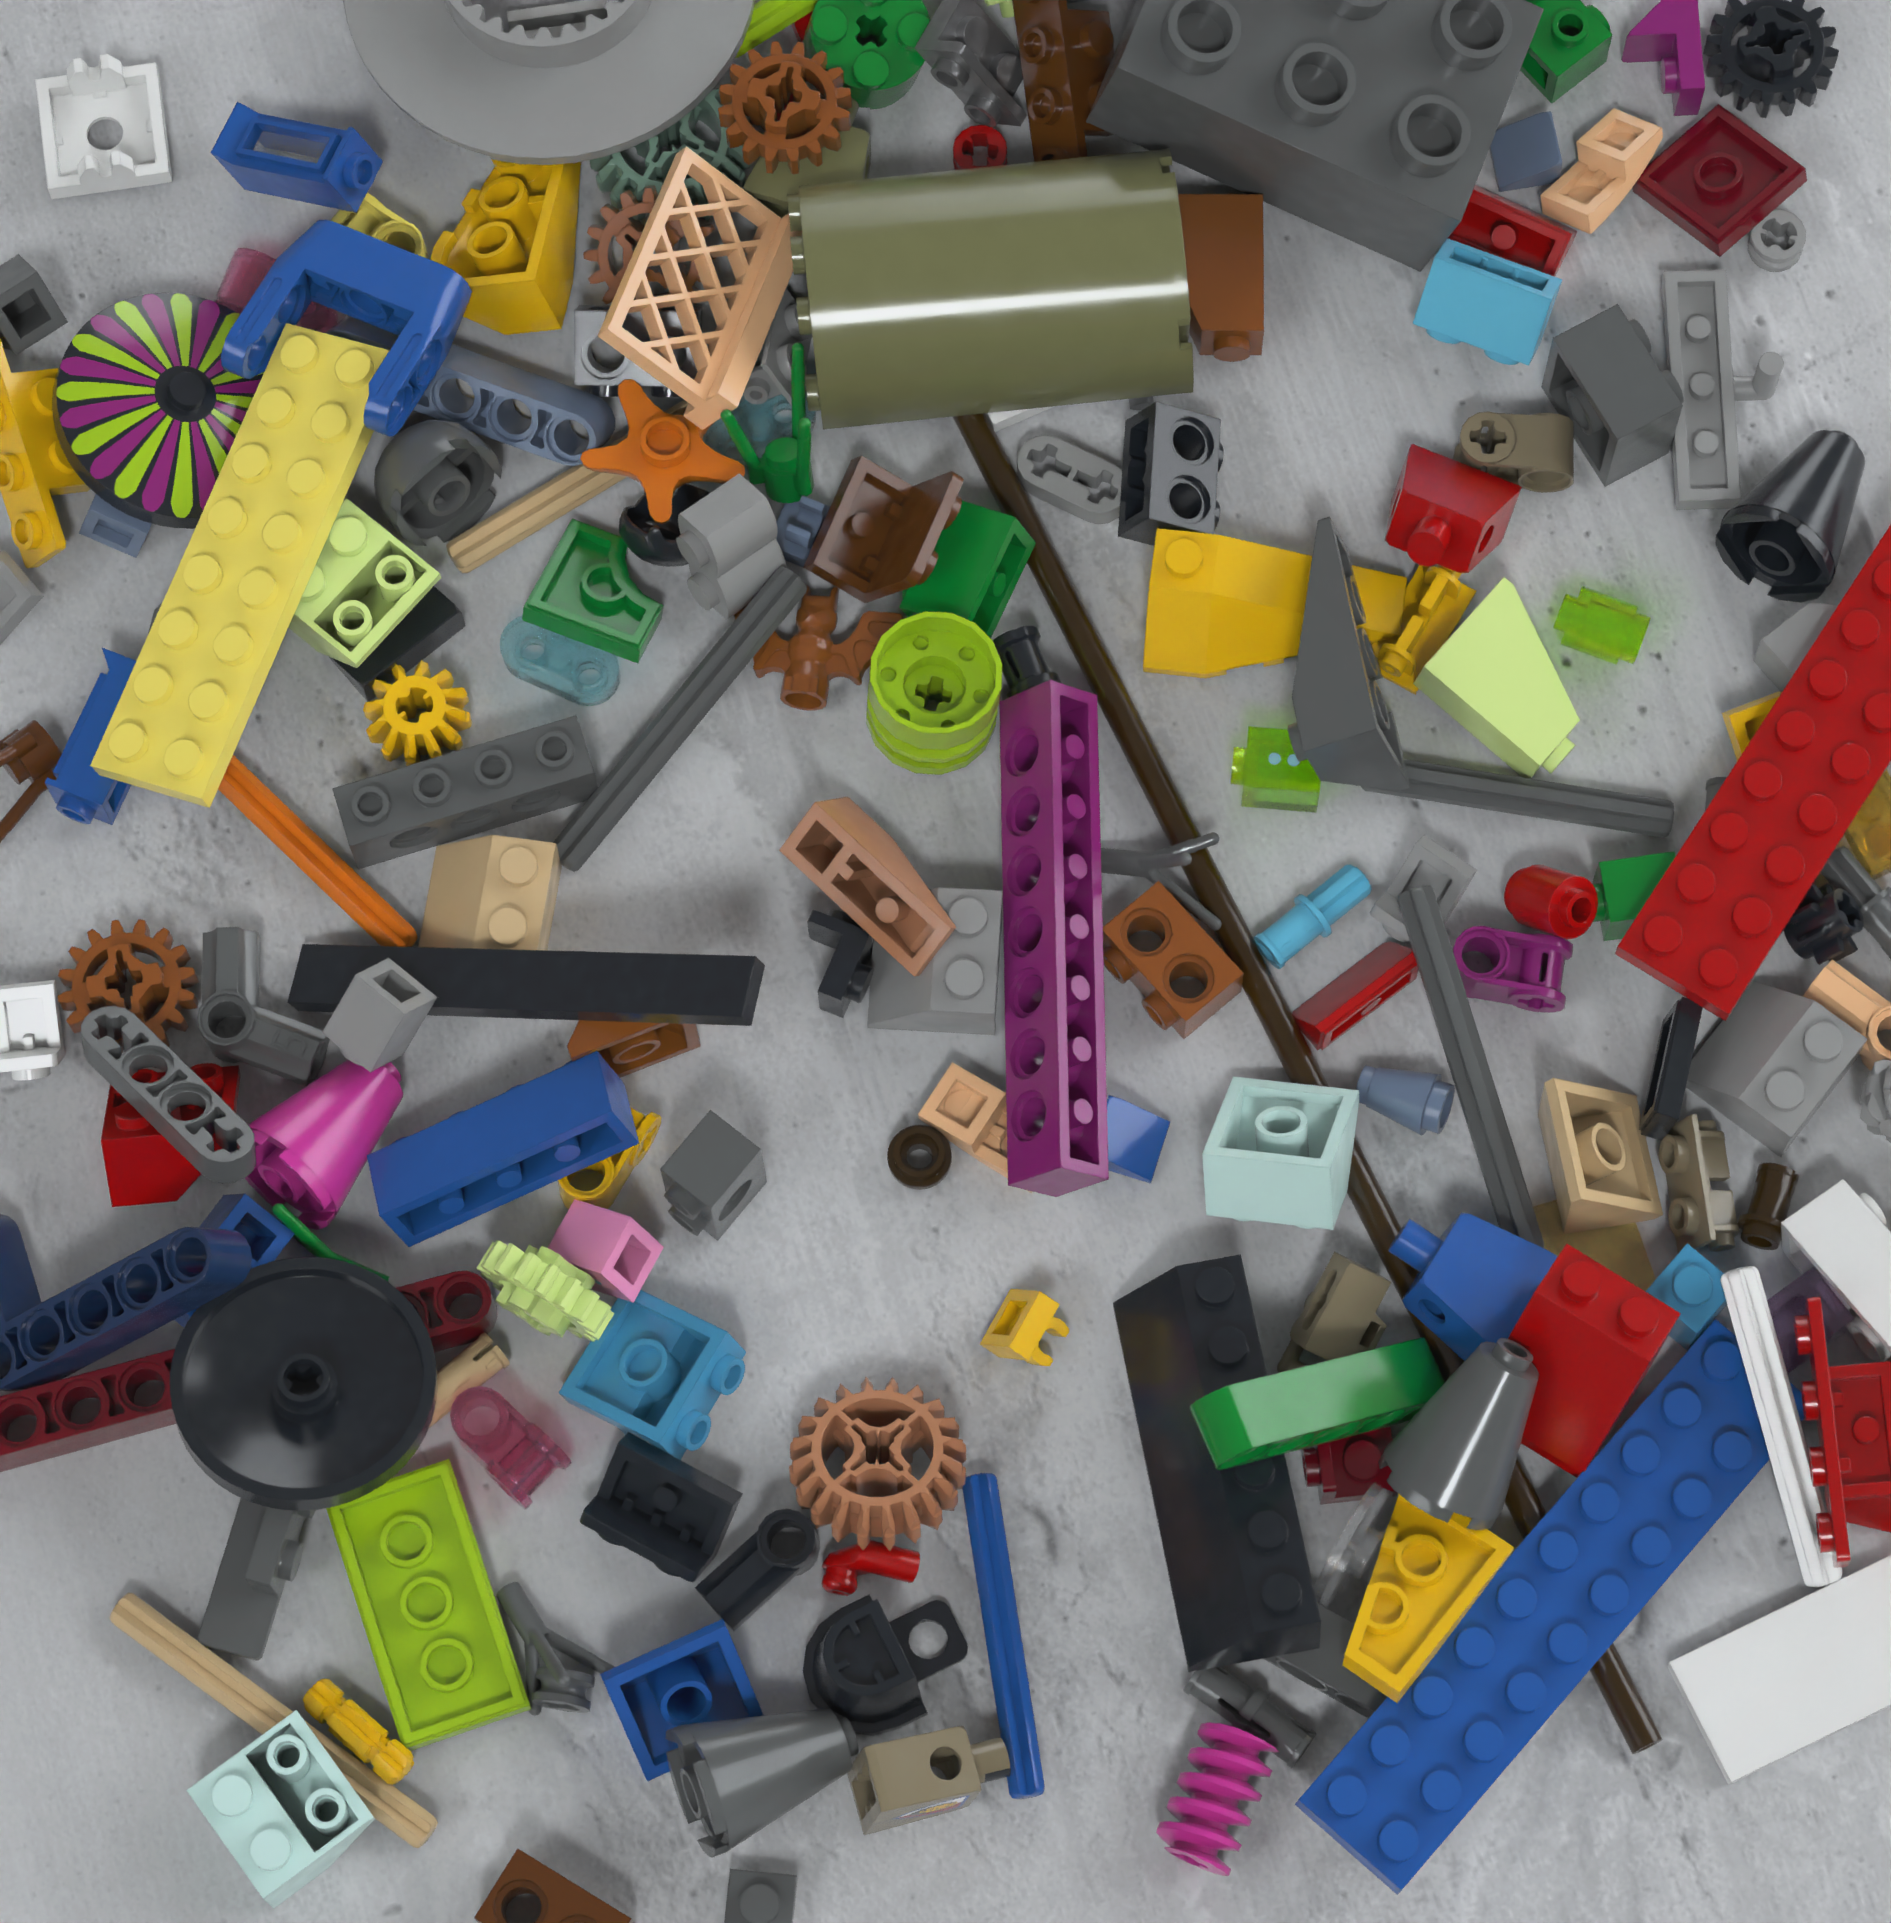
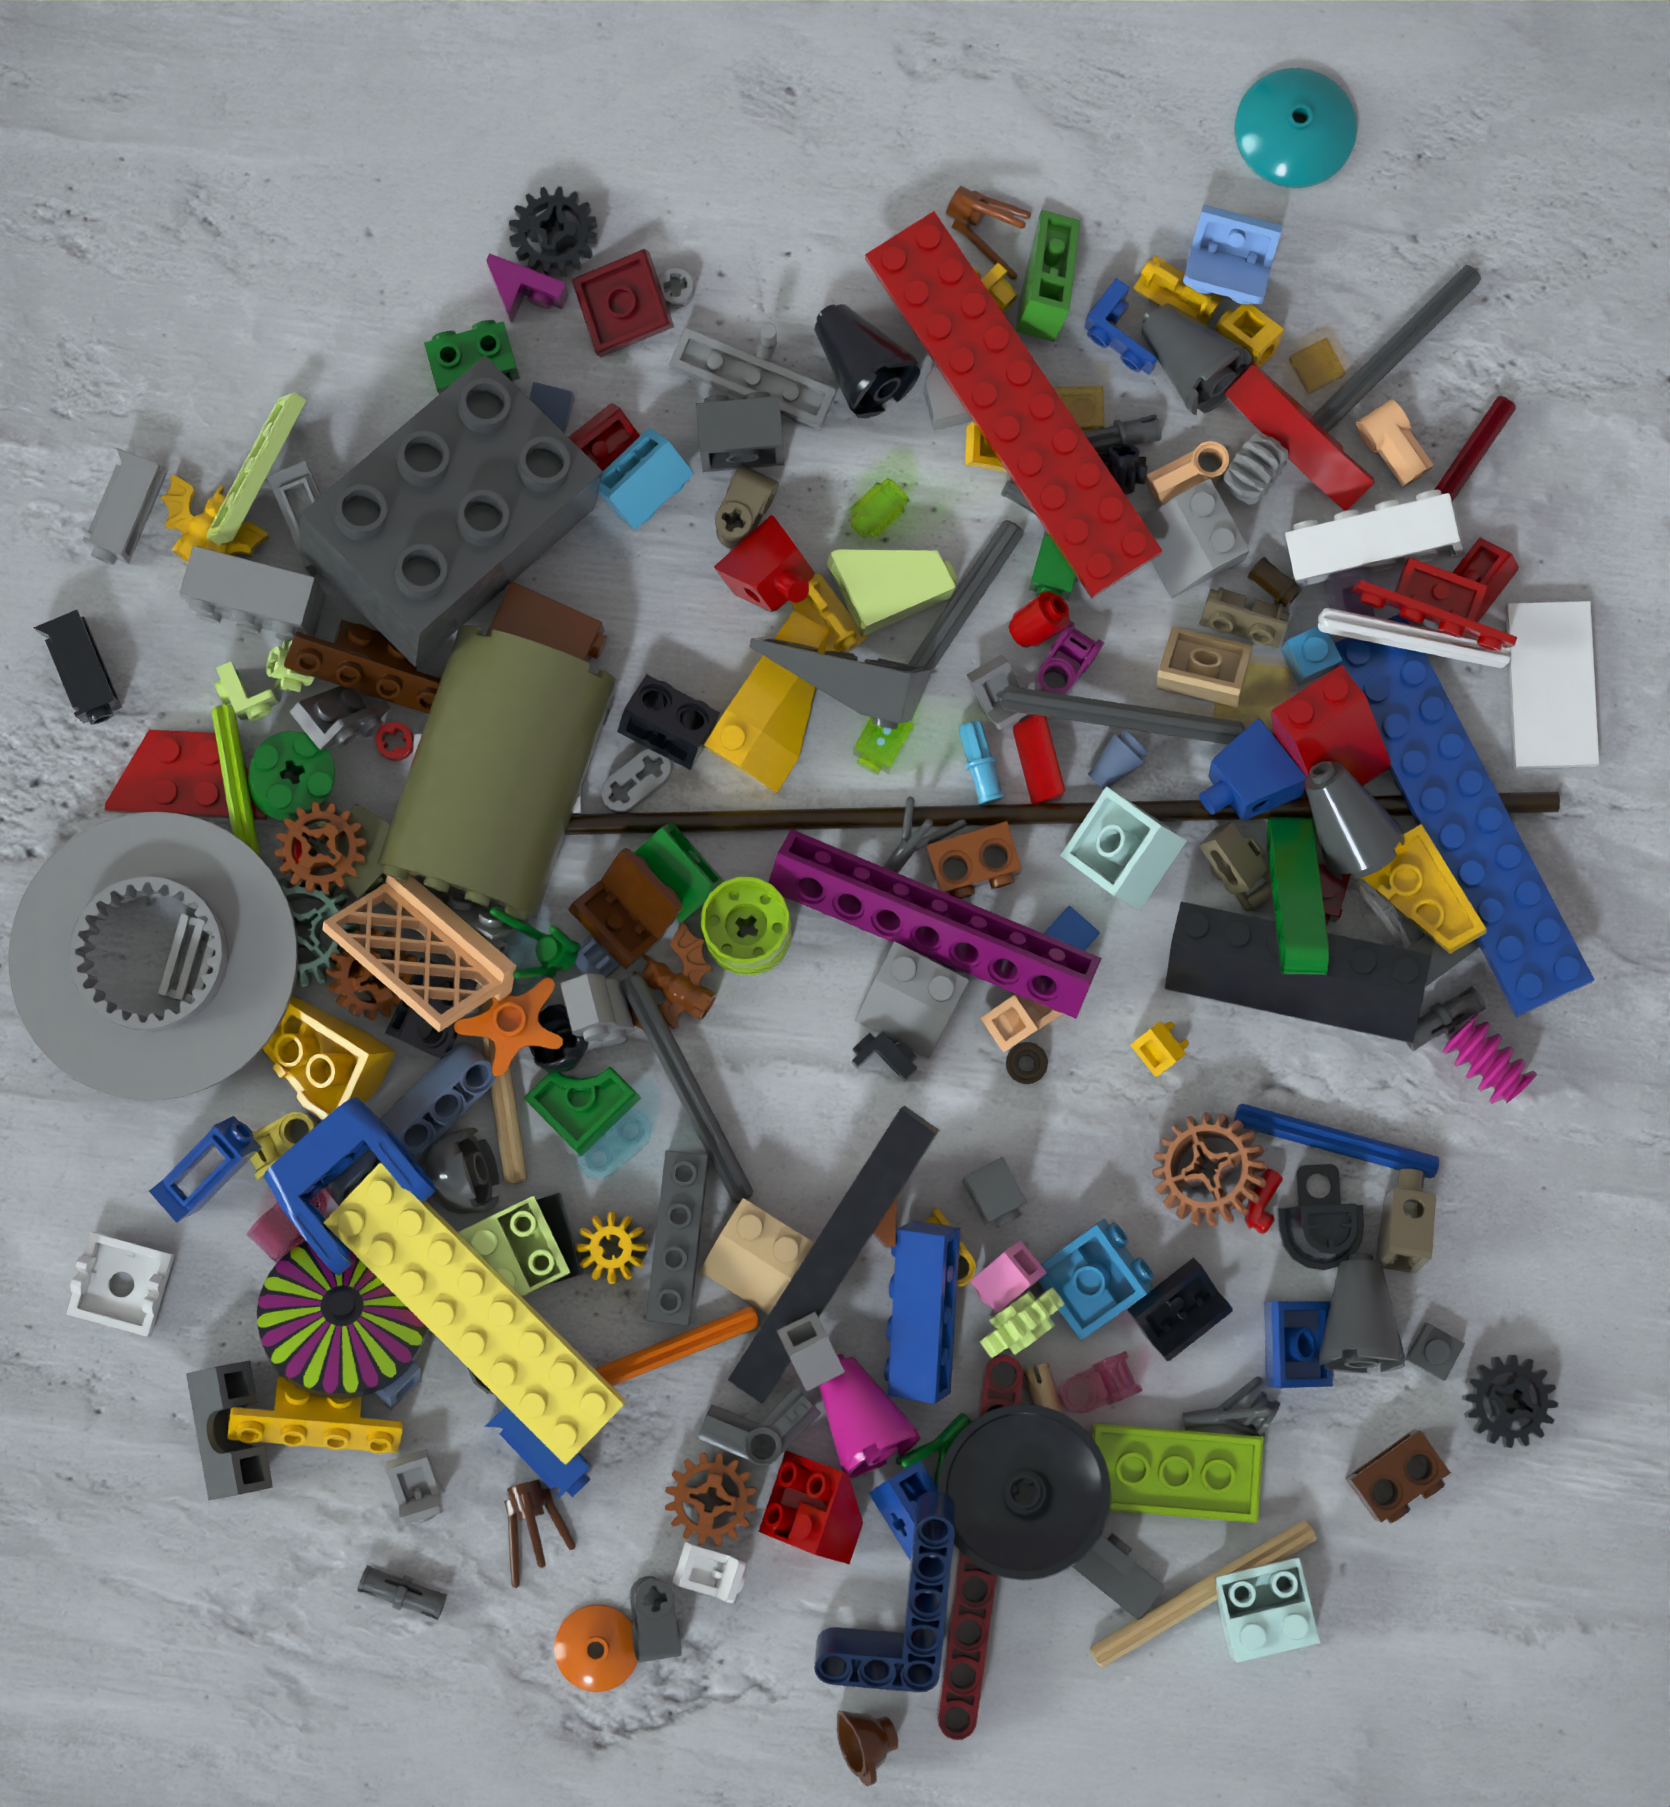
camera: 70 degrees left, 10 degrees up
(160, 1098) = (803, 1495): dark grey beam -> none
(358, 1731) = (1233, 1545): yellow axle -> none
(754, 1572) = (1239, 1270): black piece -> none
(869, 880) = (851, 1016): nougat slope -> none
(1022, 660) = (747, 863): black bush -> none
(1607, 168) = (584, 368): light nougat slope -> none
(1670, 1069) = (1171, 599): black tile -> none

